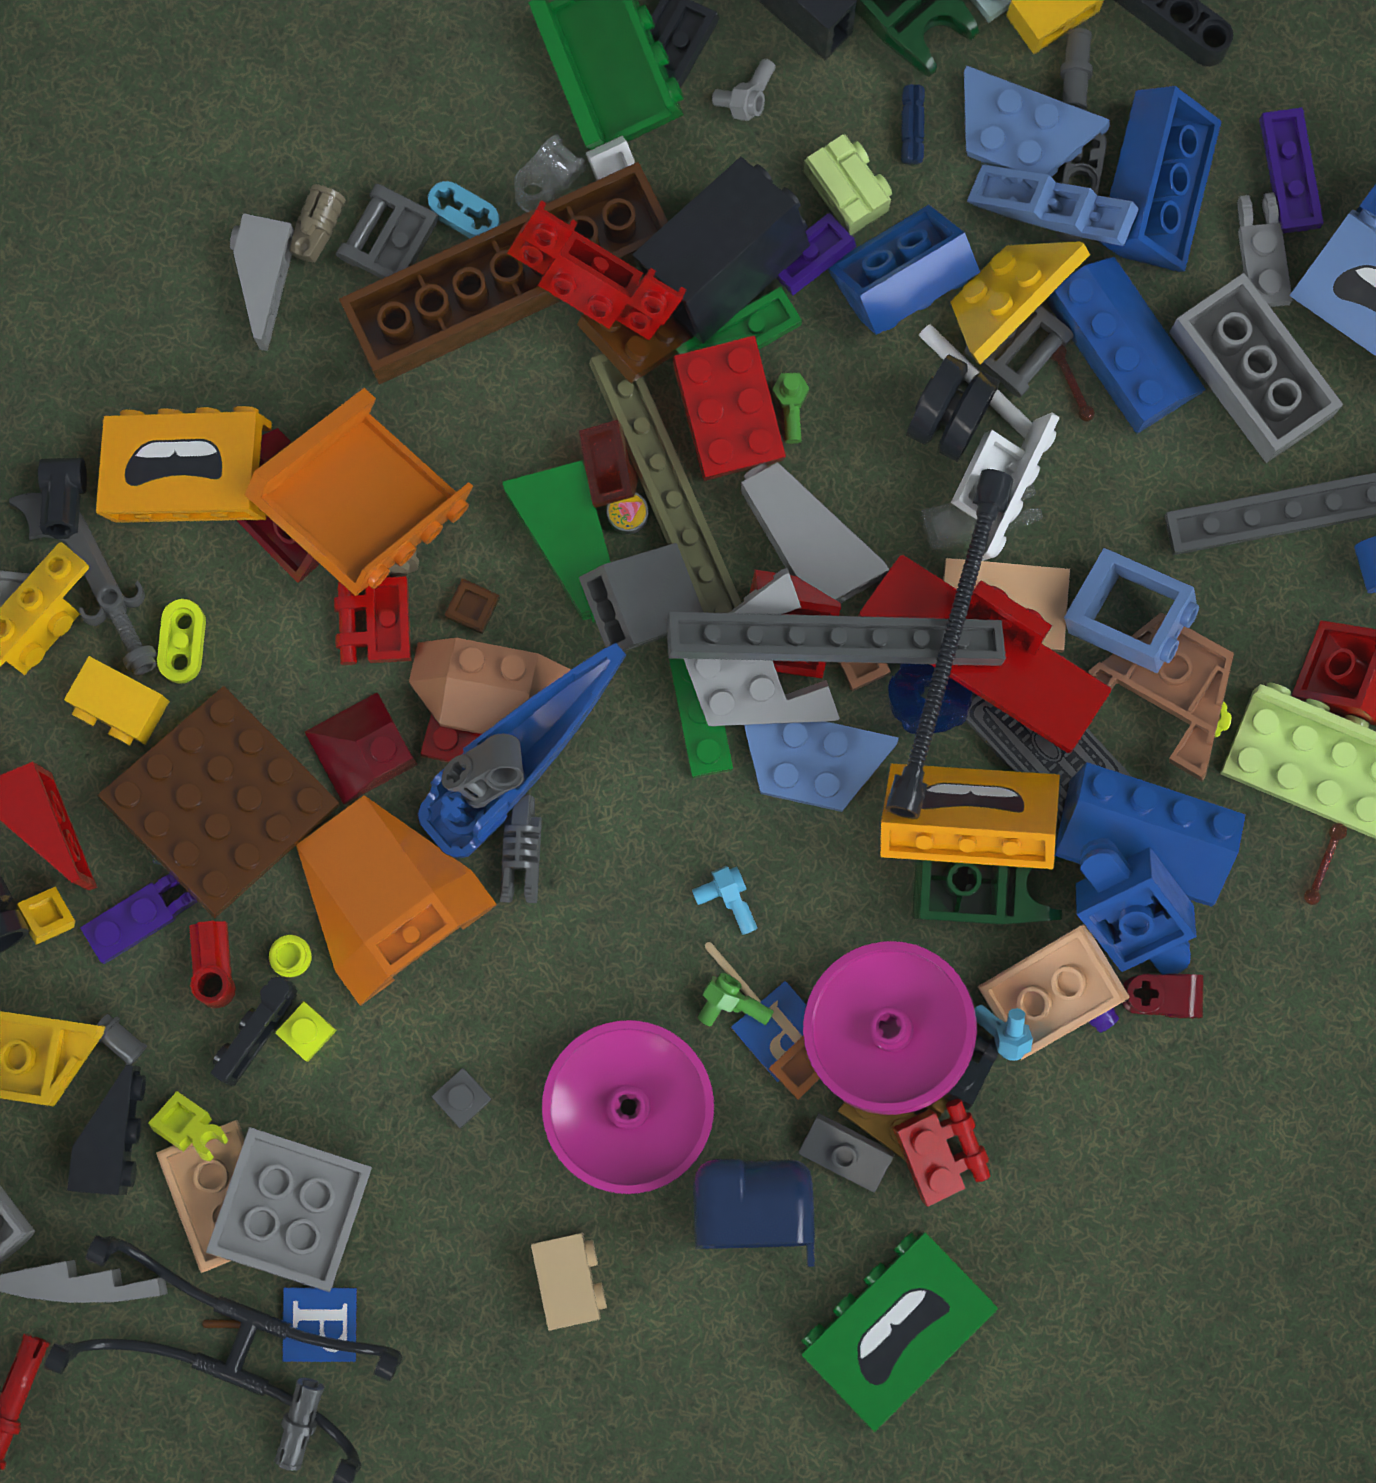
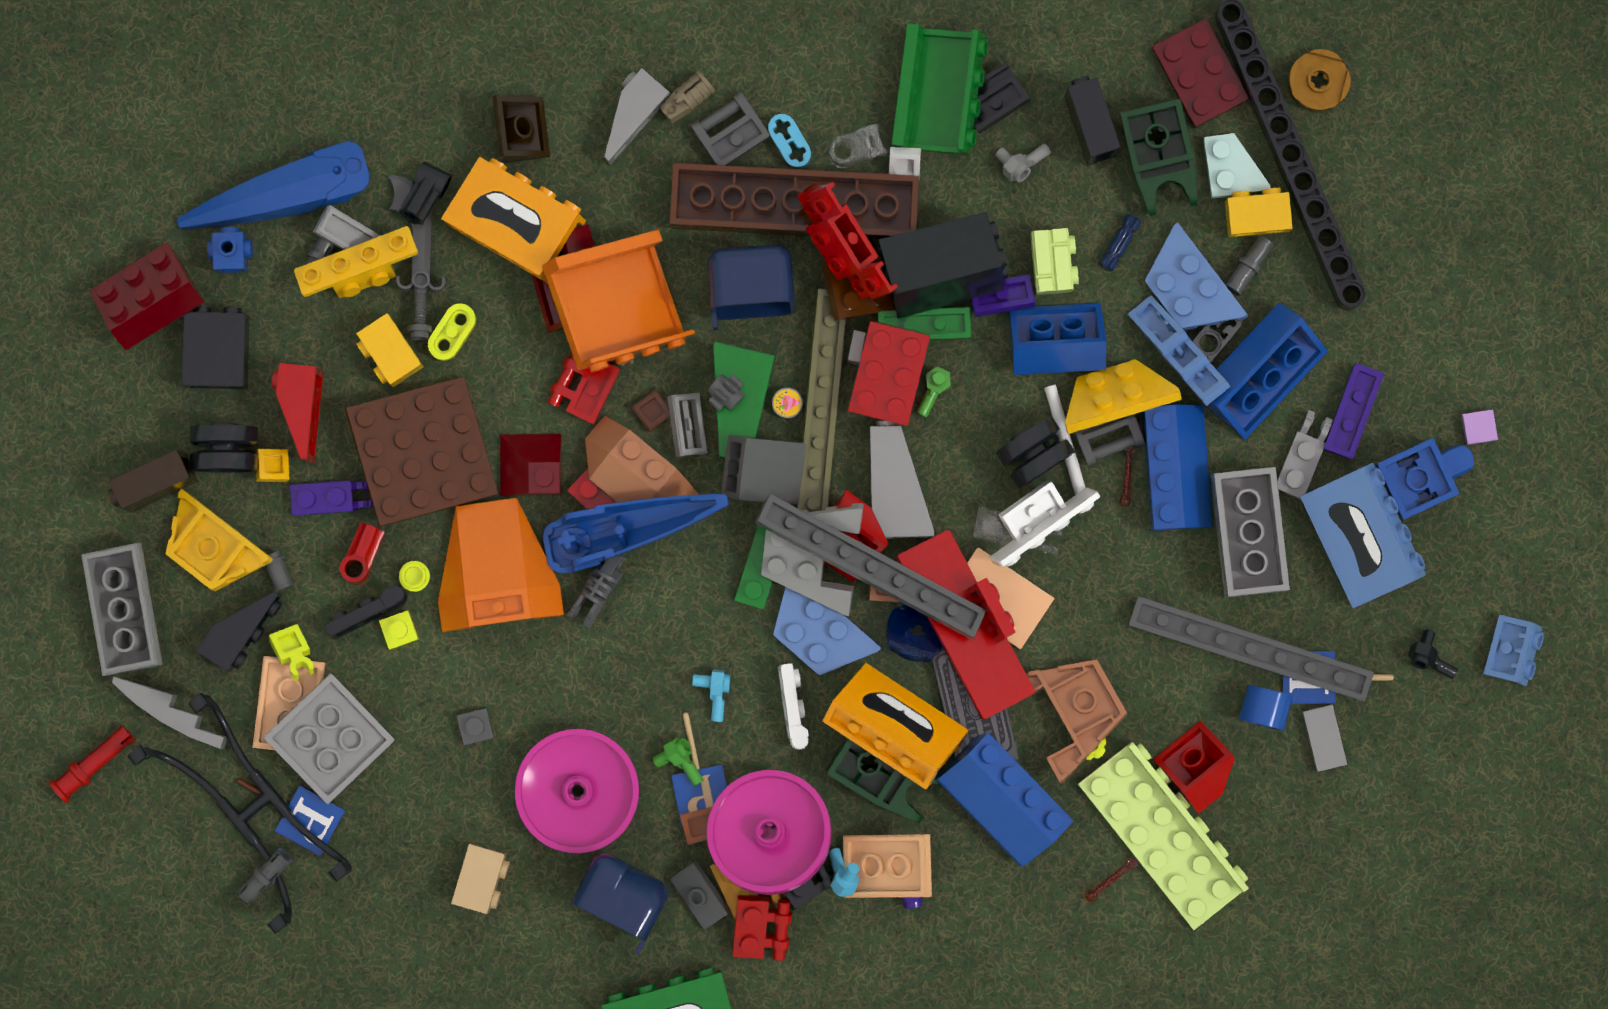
camera: 30 degrees right, 5 degrees up
(137, 360) = (521, 128): none -> dark brown slope
(489, 772) = (601, 529): dark grey piece -> none
(509, 388) = (751, 283): none -> dark blue piece
(517, 602) = (677, 429): none -> light grey tile
(548, 530) = (726, 392): none -> dark grey gear
(607, 463) = (789, 367): clear red slope -> none
(674, 403) = (856, 347): none -> light grey tile
(832, 865) = (793, 708): none -> white hinge
(909, 789) = (1023, 527): black hose -> none
(1095, 590) = (1059, 624): medium blue window -> none
(1134, 908) = (953, 838): blue brick -> none
(1170, 995) = (963, 909): dark red piece -> none

